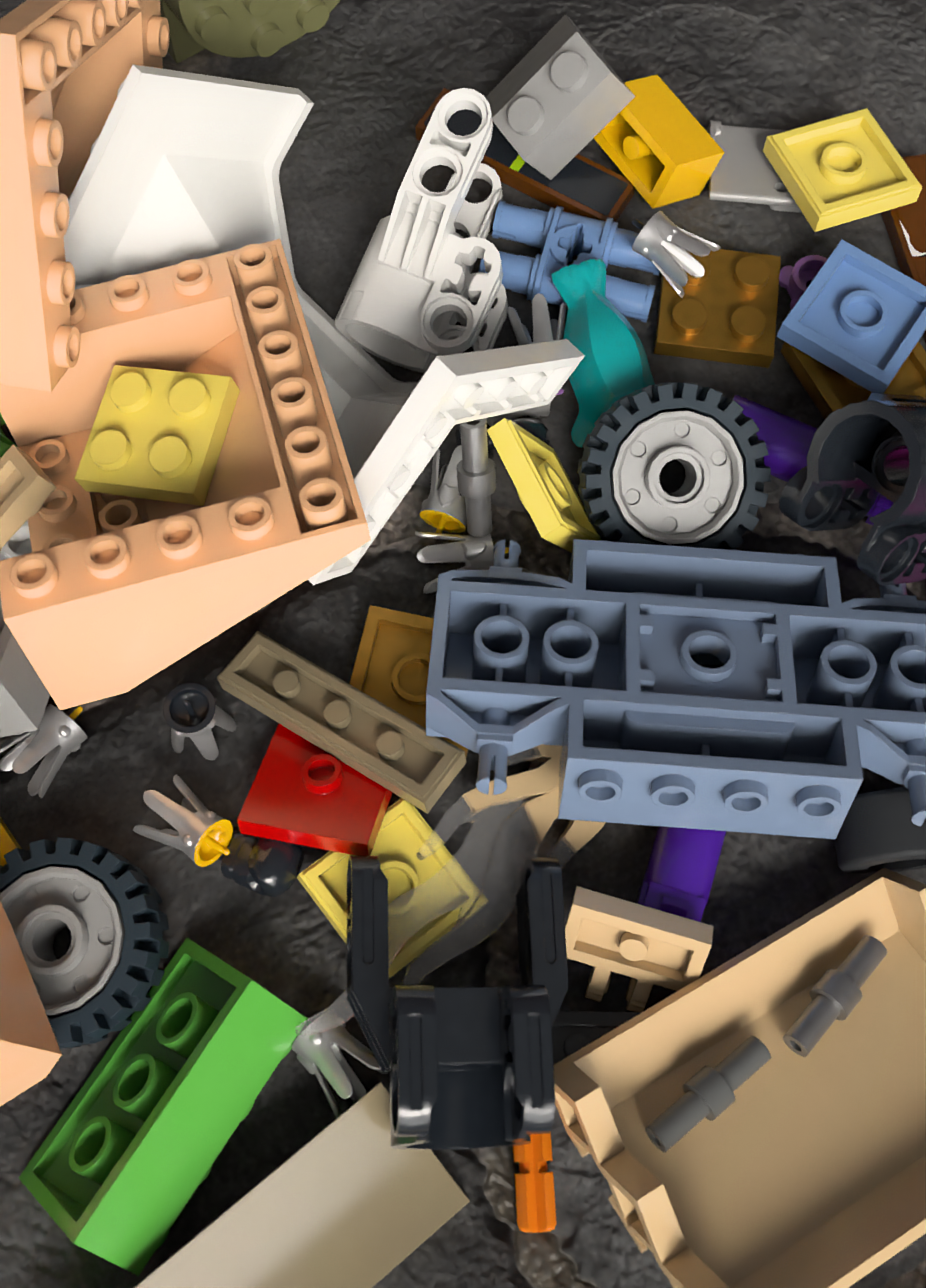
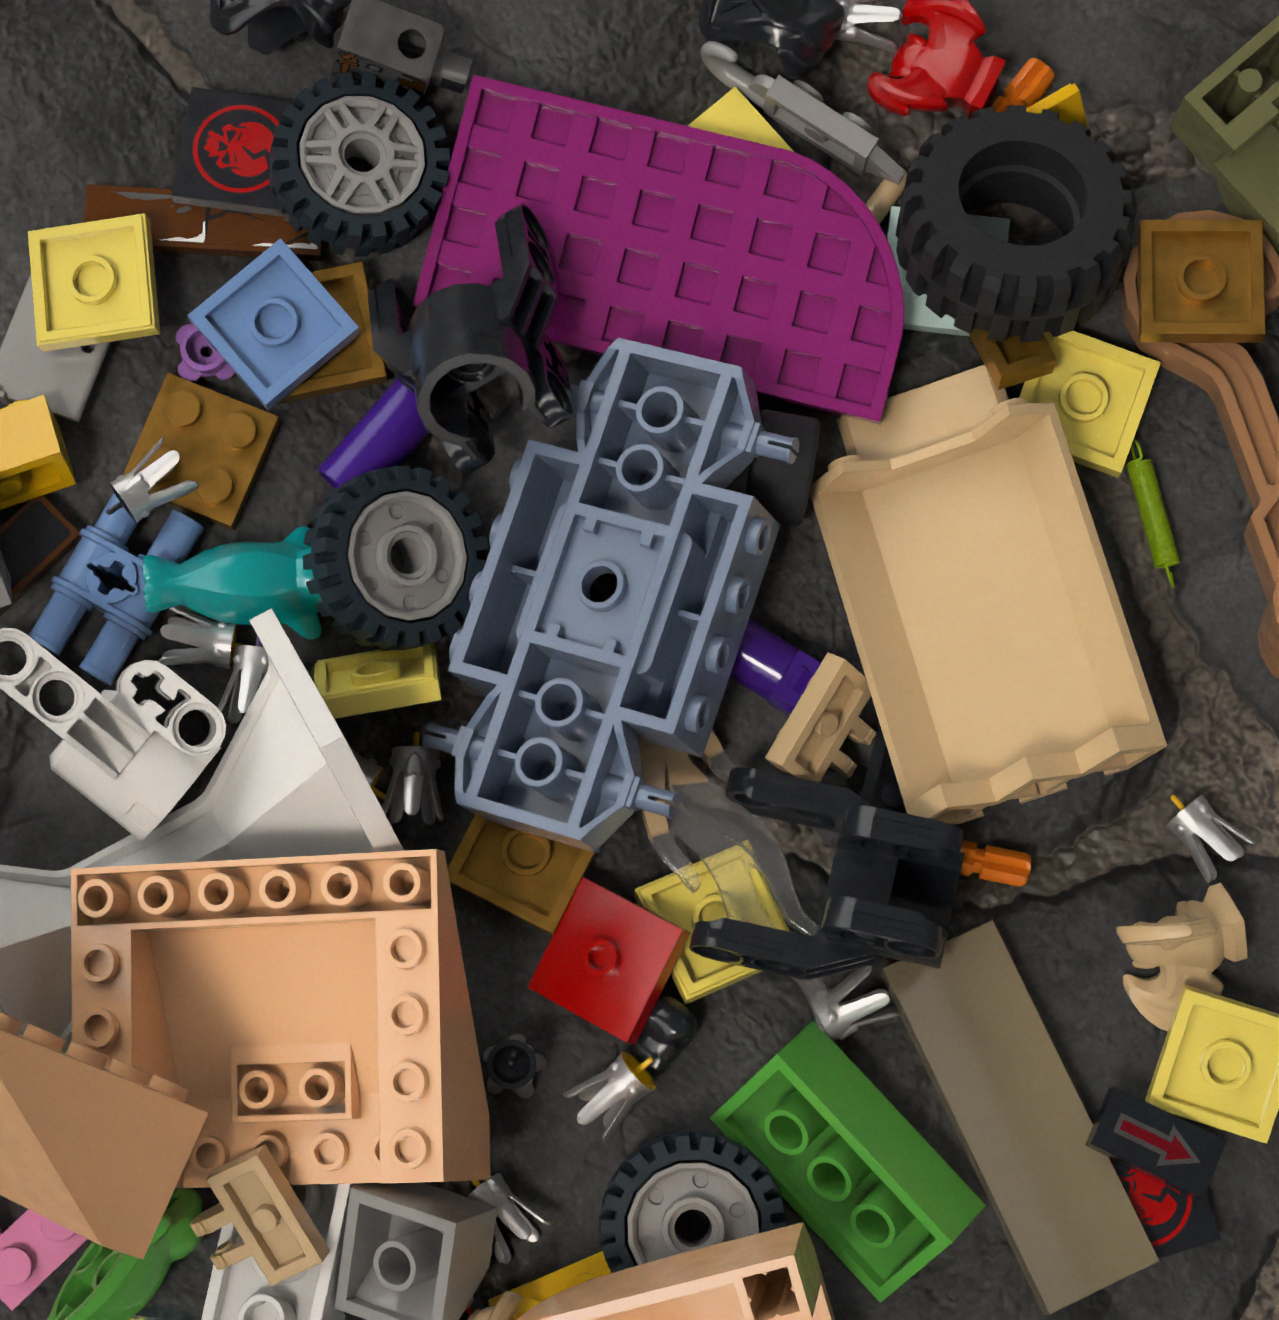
camera: 75 degrees left, 10 degrees up
(158, 434) = (247, 1031): light yellow plate -> none
(343, 721) = (558, 927): dark tan tile -> none
(476, 477) = (370, 747): flat silver bar -> none
(708, 1093) = (960, 697): dark grey bar -> none
(835, 995) = (906, 567): flat silver bar -> none

